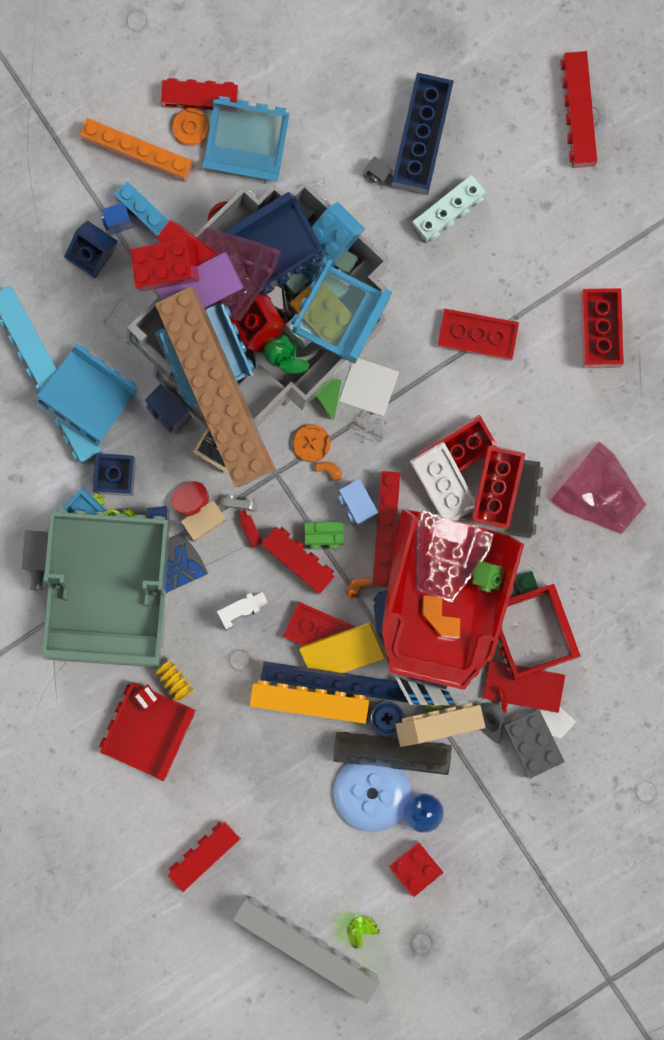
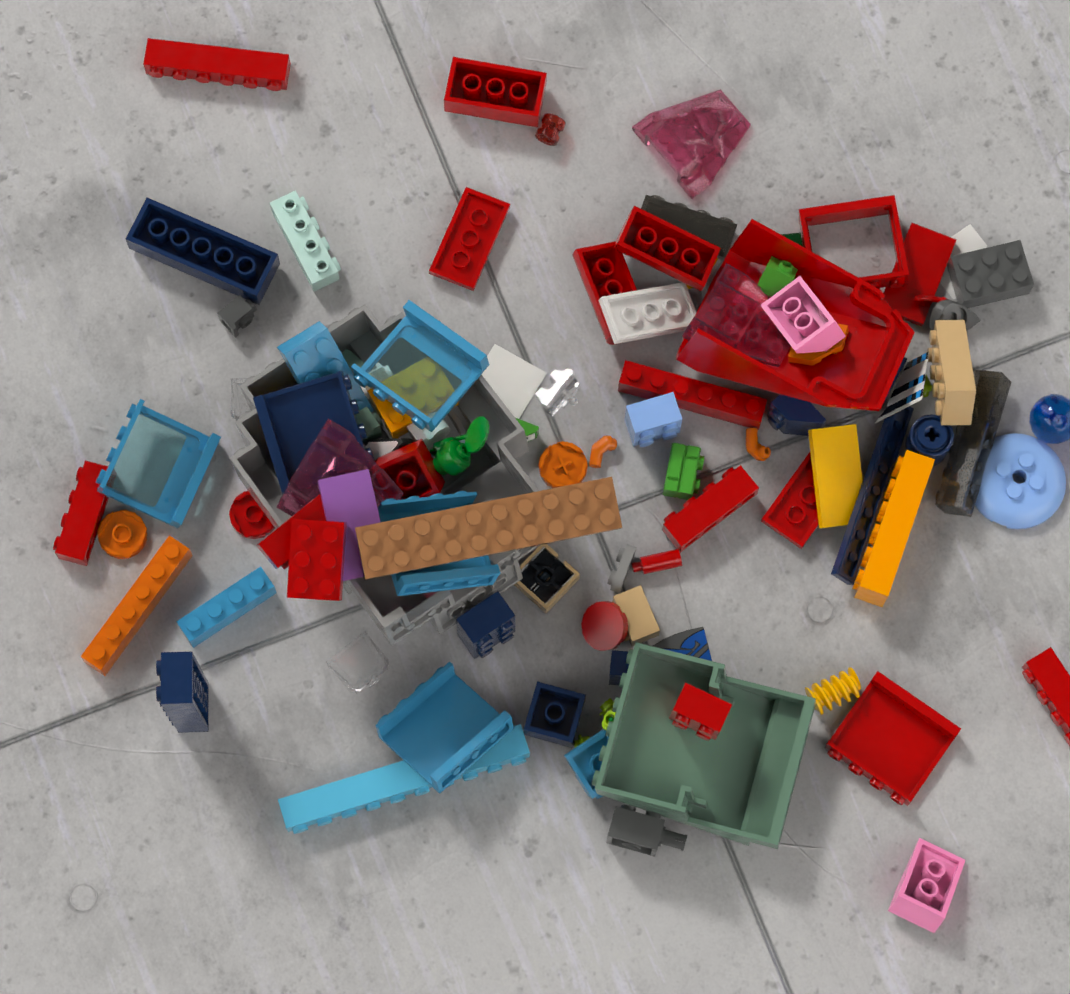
camera: 80 degrees left, 10 degrees down
(42, 776) = (927, 886): none -> bright pink slope
(64, 195) = (183, 691): none -> dark blue brick
(90, 248) = (252, 689): dark blue slope -> none
(116, 218) = (222, 645): blue brick -> none
(125, 579) = (700, 712): none -> red brick
(146, 697) = (849, 731): tile -> none
(241, 608) = (758, 589): white hips -> none
(455, 600) = (803, 318): none -> bright pink slope
(581, 377) = (550, 129): none -> clear red wheel

